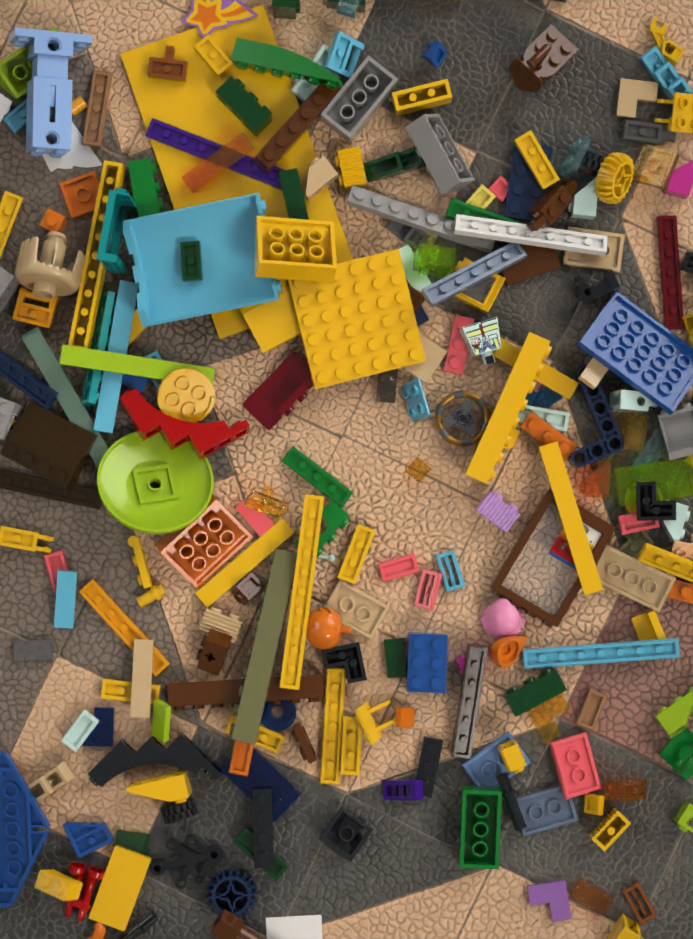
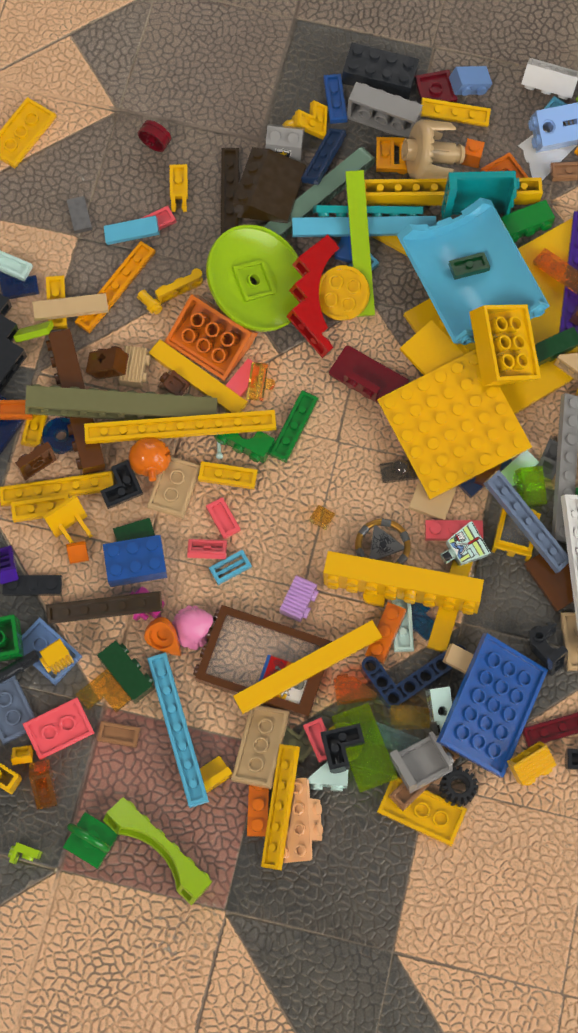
camera: 75 degrees right, 15 degrees down
(415, 400) = (381, 501): medium azure hinge -> none

